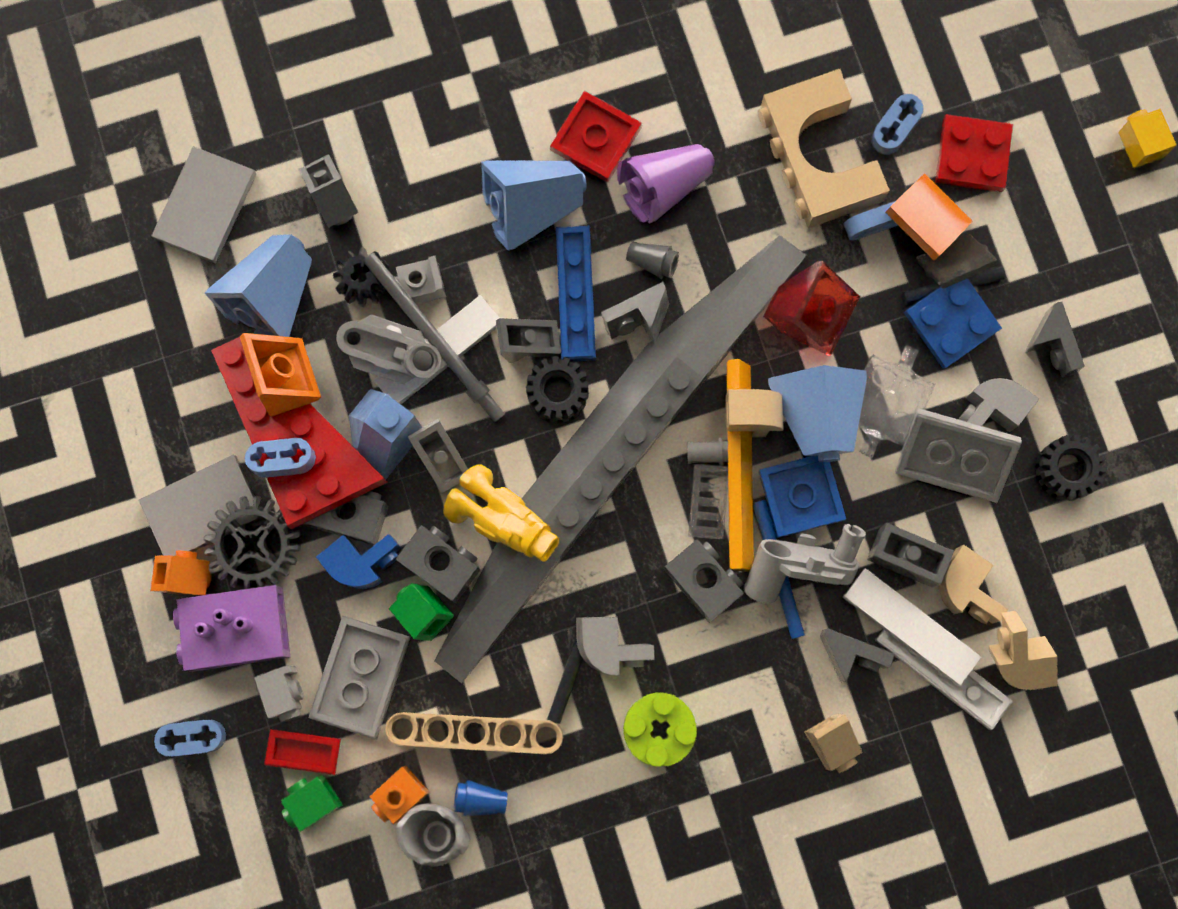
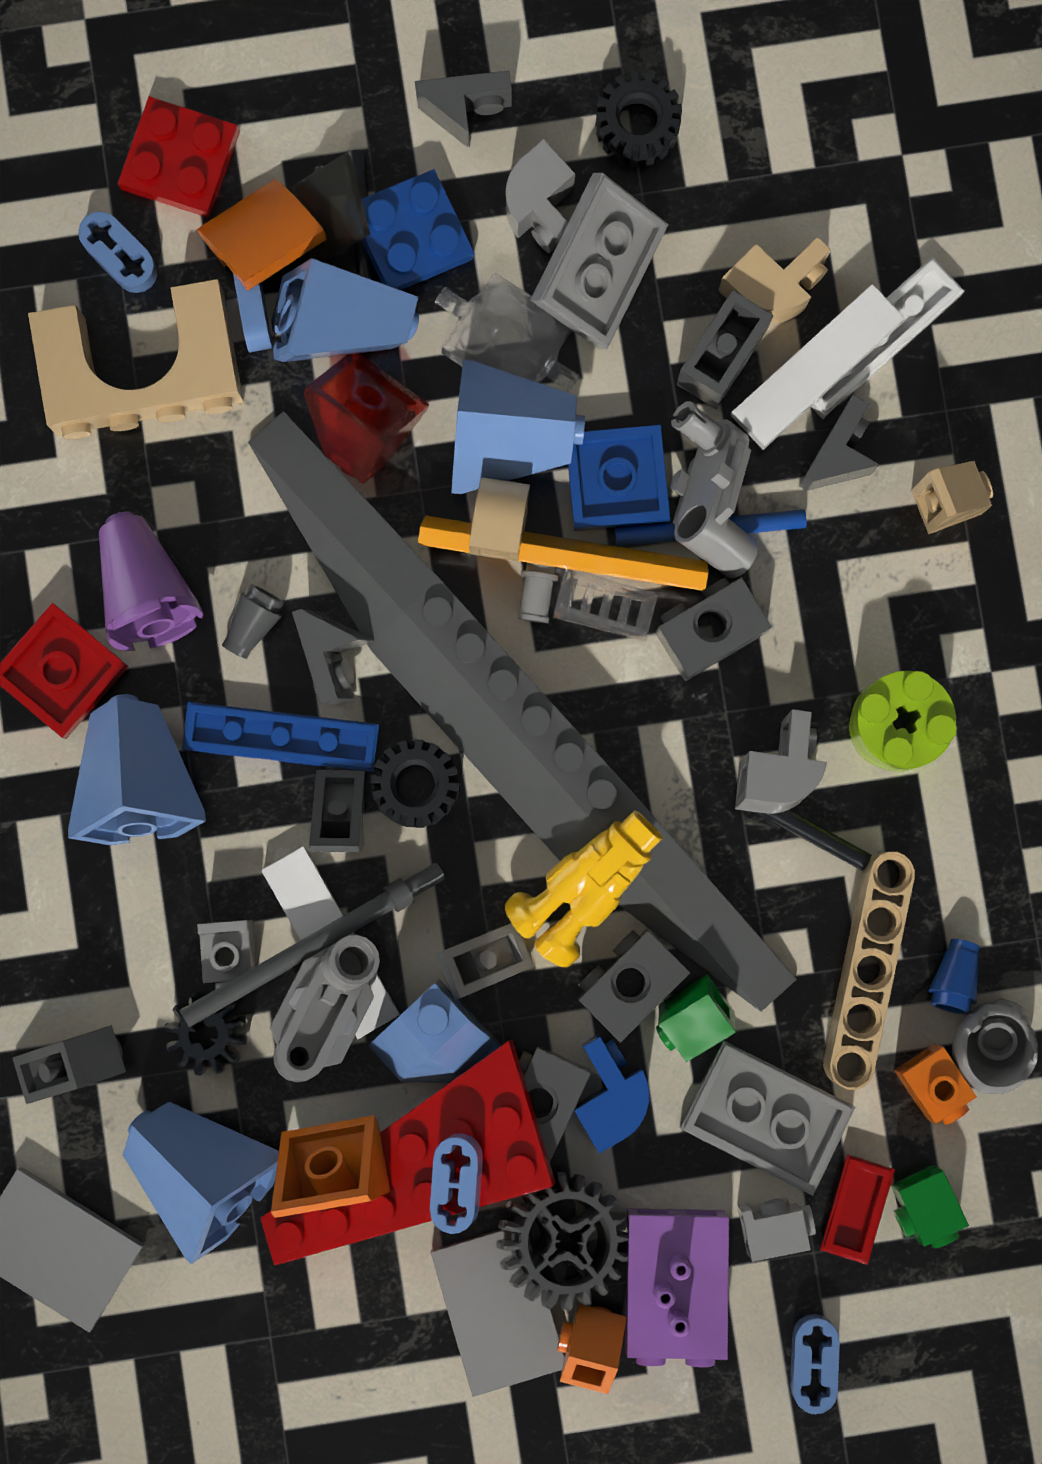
camera: 85 degrees left, 5 degrees up
(881, 279) = (338, 313): none -> medium blue slope
(1023, 661) = (882, 232): tan brick -> none

